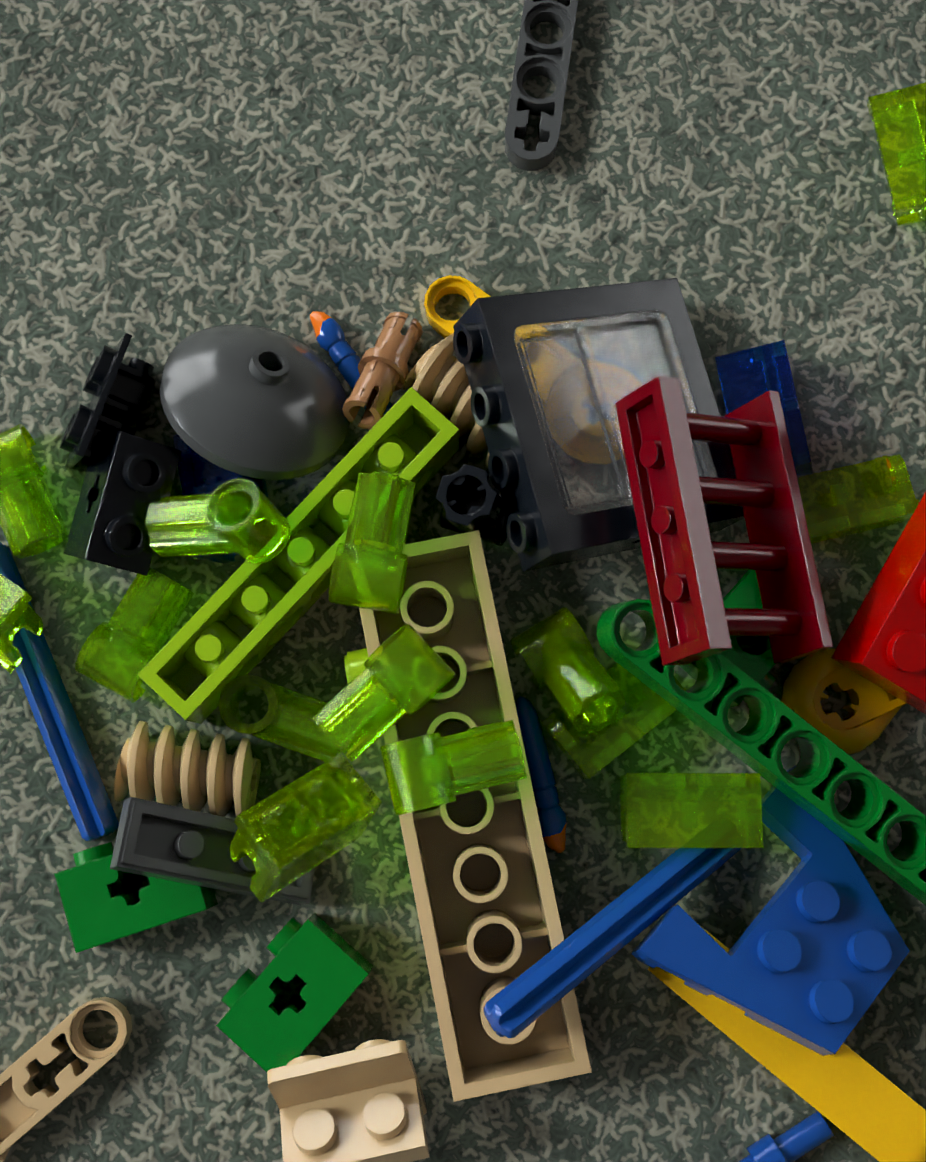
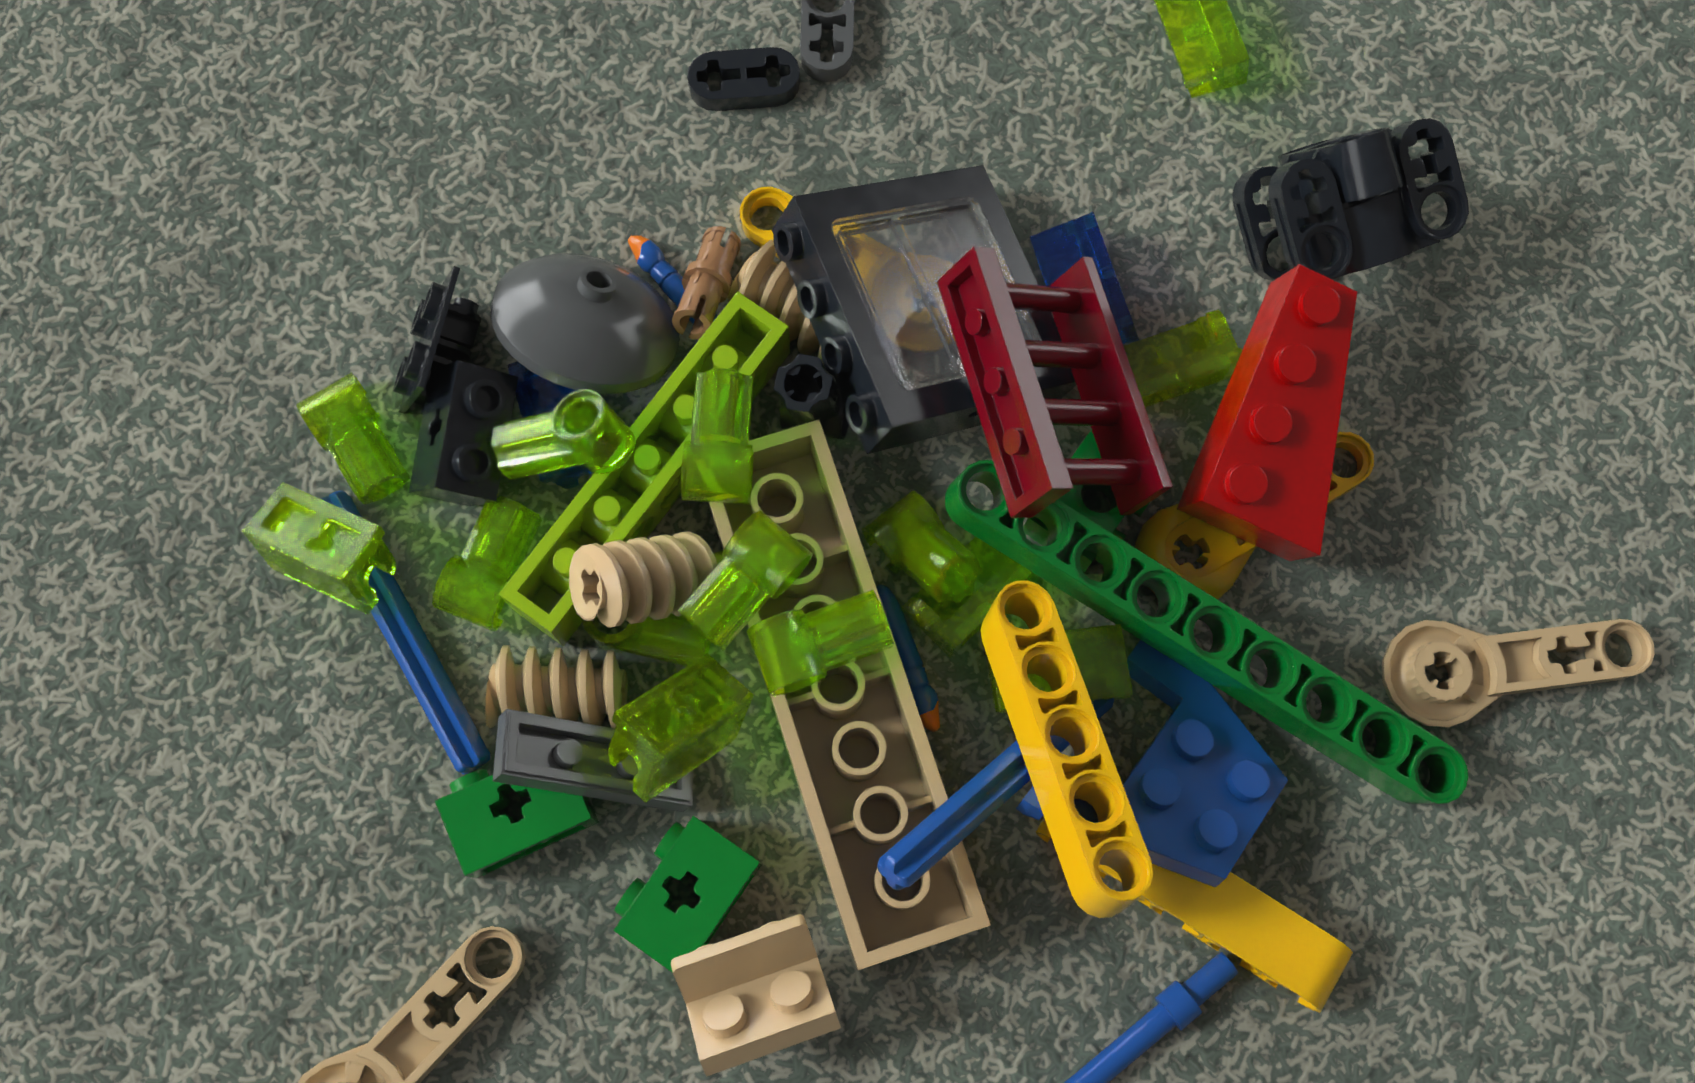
camera: 10 degrees left, 5 degrees down
(279, 676) = (638, 577): none -> tan piece
(444, 159) = (743, 79): none -> black beam
(677, 939) = (1060, 777): none -> yellow beam

